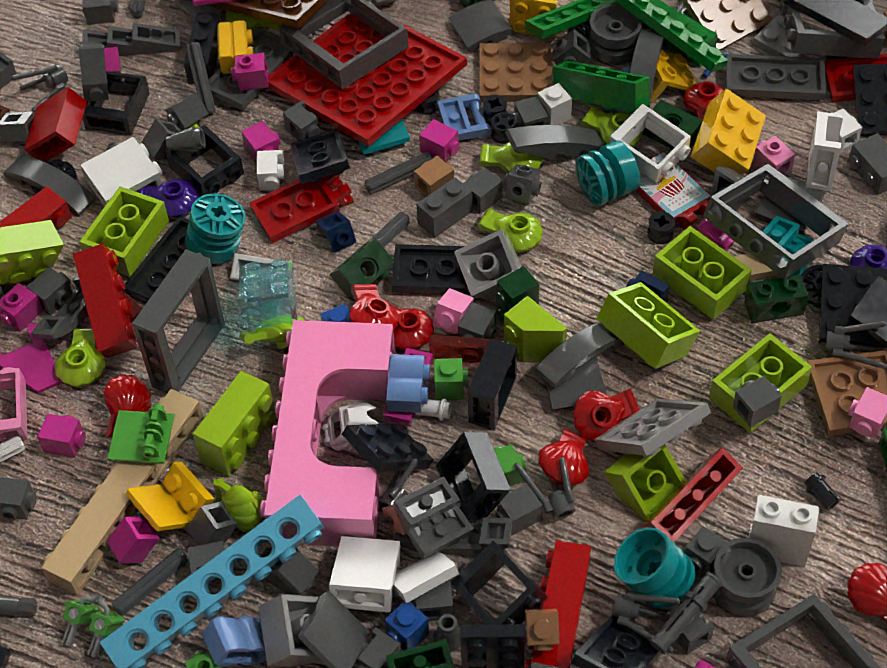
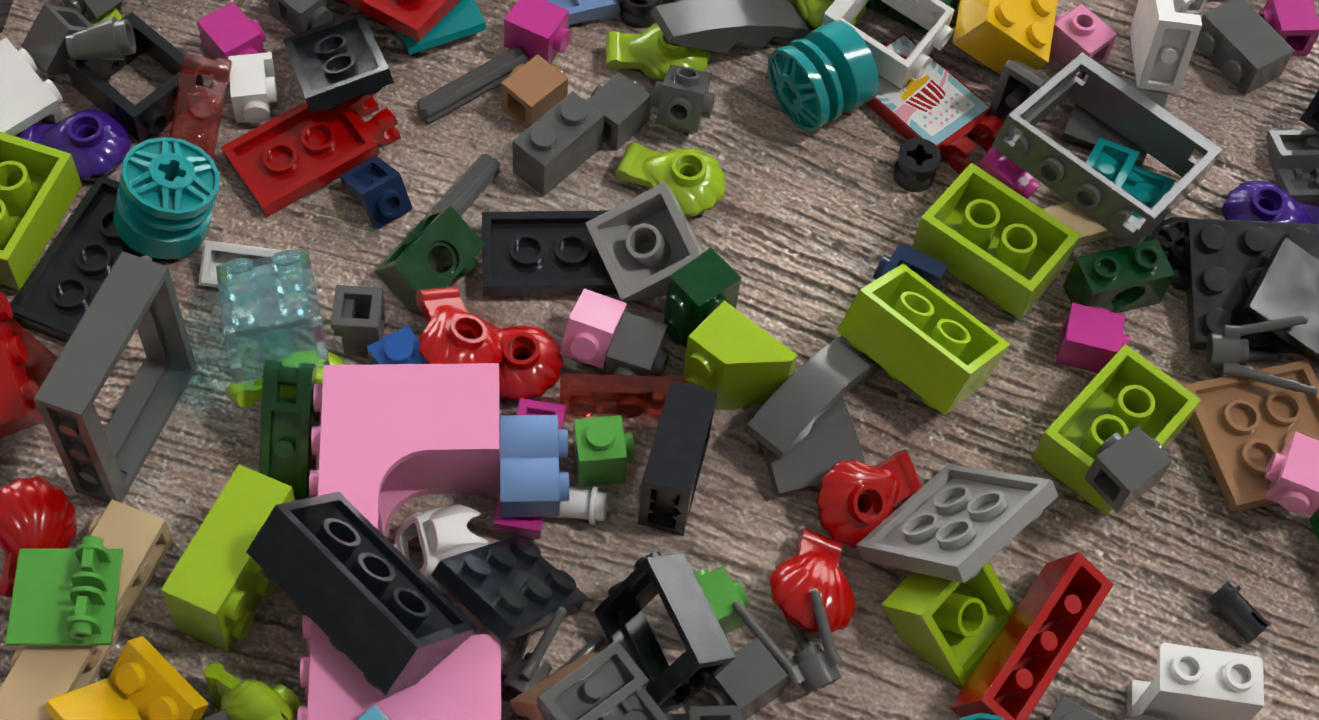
camera: 15 degrees left, 5 degrees up
(239, 179) = (199, 107): none -> clear red plate
(271, 352) = (287, 425): none -> dark green plate
(300, 437) = (359, 590): none -> black slope
(317, 298) = (358, 317): none -> dark grey brick
(752, 329) = (1090, 337): none -> dark pink brick

